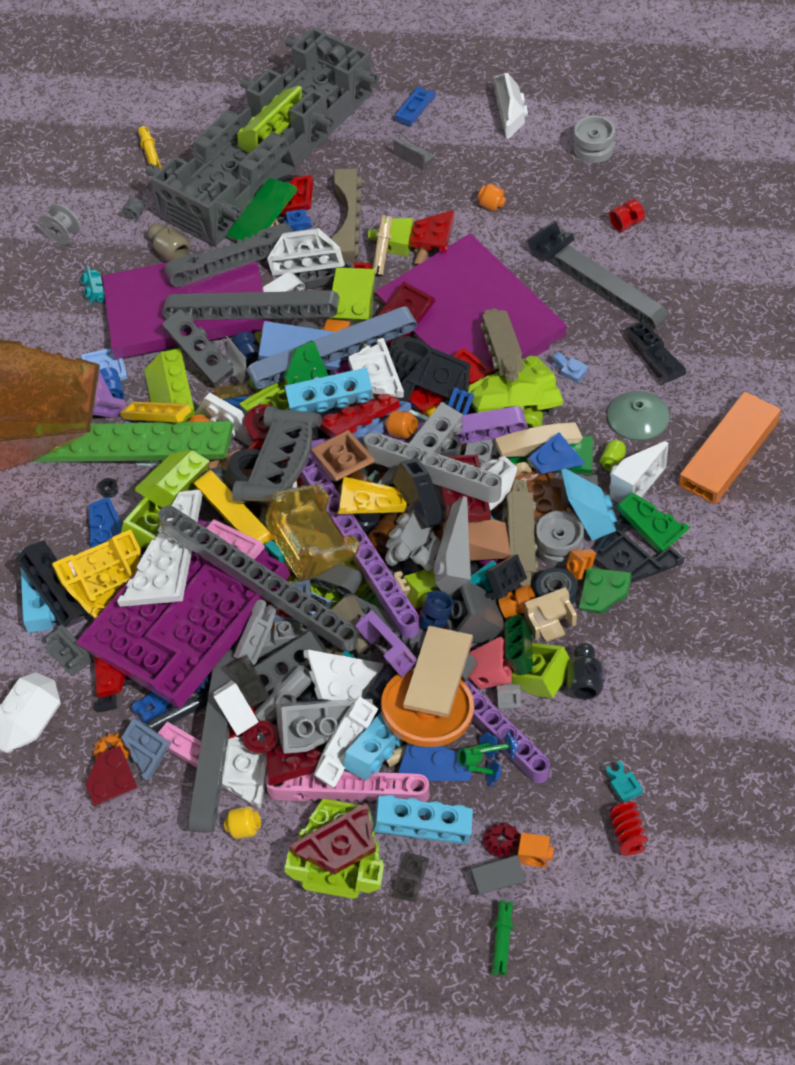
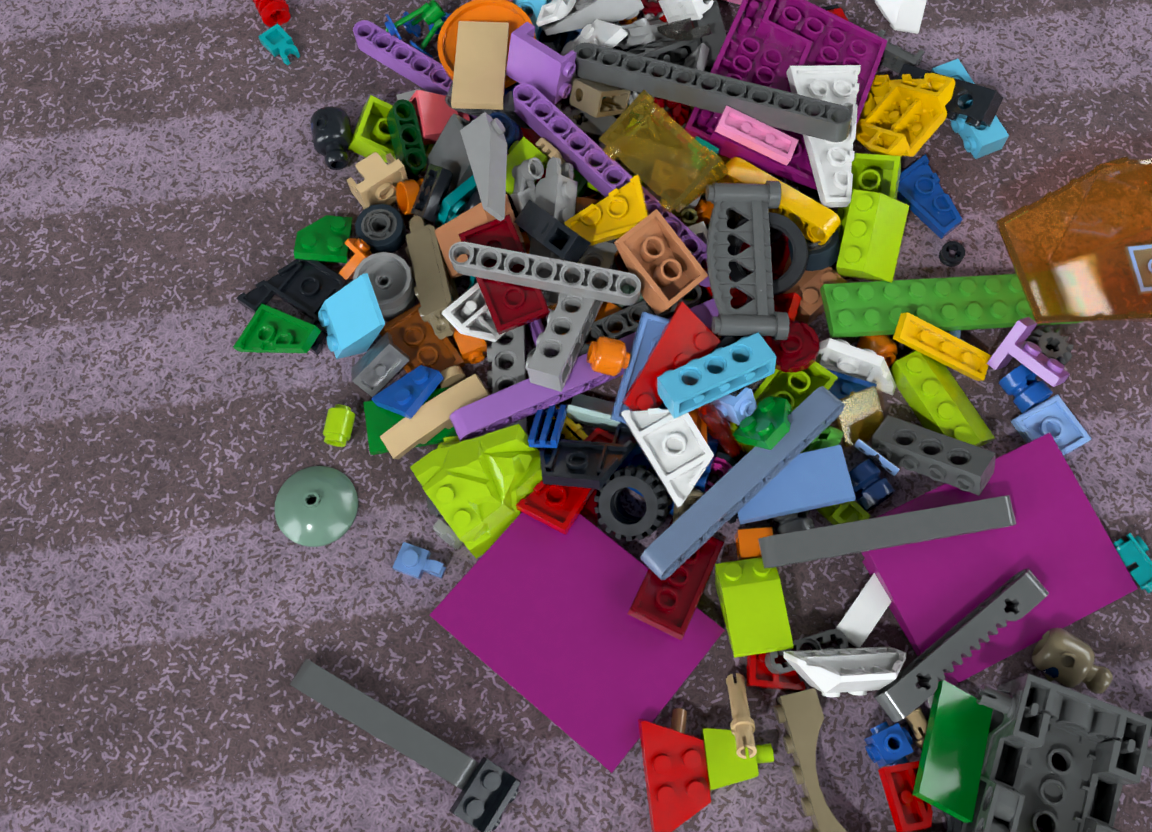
camera: 165 degrees right, 15 degrees up
(502, 343) = (508, 537): dark tan hinge -> none
(638, 472) = (299, 388): white slope -> none
(652, 350) = (300, 607): black slope -> none
(729, 448) = (187, 472): orange brick -> none

